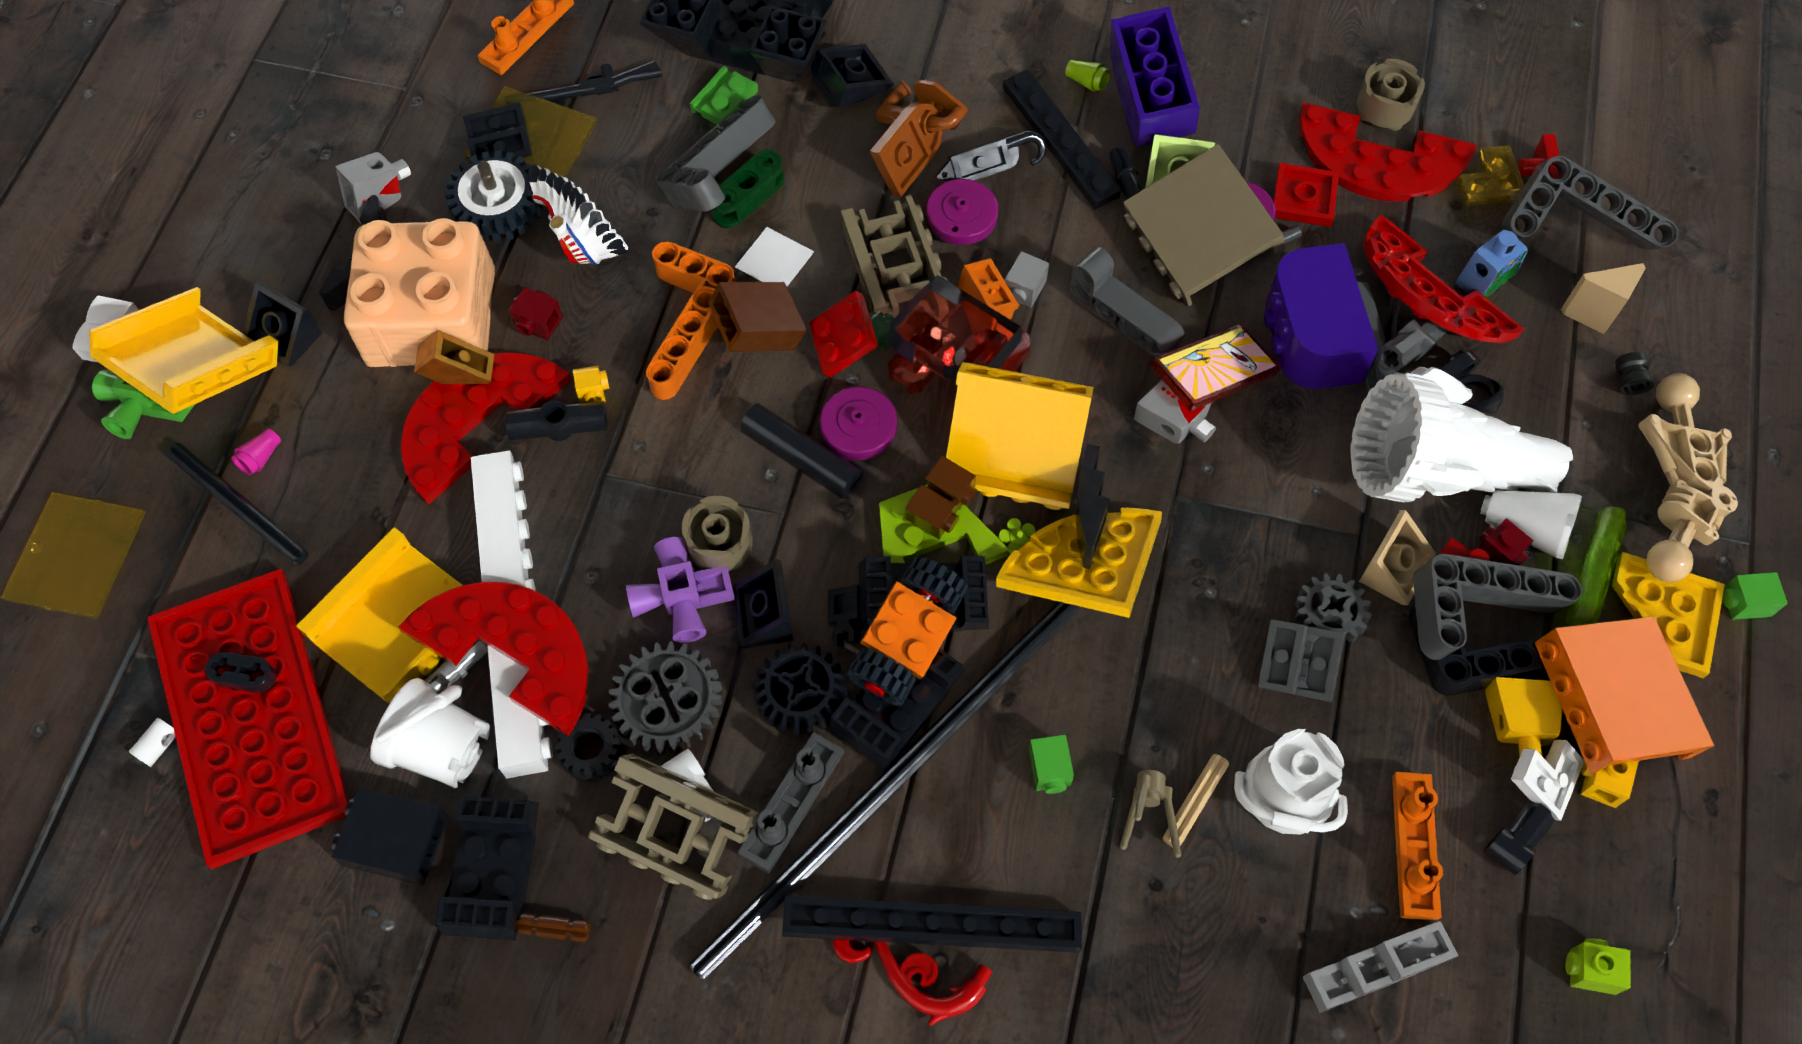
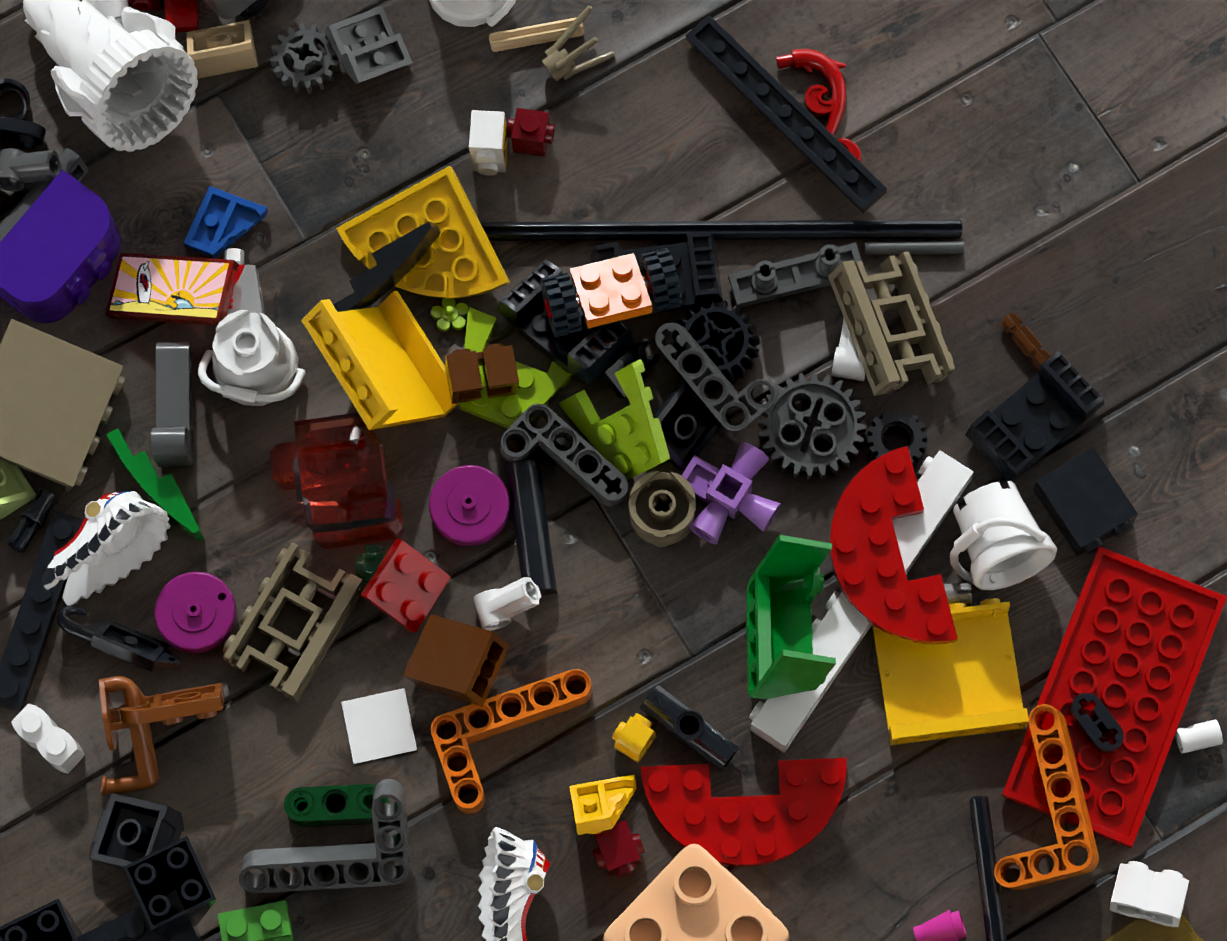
camera: 130 degrees left, 10 degrees up
(107, 595) = (1149, 894): none -> white brick
(190, 569) = (1059, 808): none -> orange beam
(453, 361) = (726, 846): pearl gold slope -> none
(536, 517) = (781, 620): none -> green windscreen
(571, 322) = (601, 803): none -> yellow wing
(719, 920) = (914, 248): none -> dark grey bar
(764, 382) = (499, 605): none -> white piece
(766, 639) = (709, 372): none -> dark grey beam
(771, 513) = (568, 459): none -> dark grey beam
(801, 551) = (630, 436): none -> lime wing
(967, 76) = (50, 740): none -> white brick
(987, 285) = (260, 517): orange hinge -> none
(1027, 278) = (217, 502): light grey brick -> none
(1051, 764) = (603, 138): bright green brick -> none
(1064, 191) = (110, 543): none -> white piece
(1066, 252) = (162, 491): none -> green slope
(1109, 712) = (530, 131): none -> dark red brick
(1112, 363) = (251, 361): none -> white piece
(1127, 666) = (488, 142): none -> white brick
(1243, 447) = (222, 222): none -> blue wing

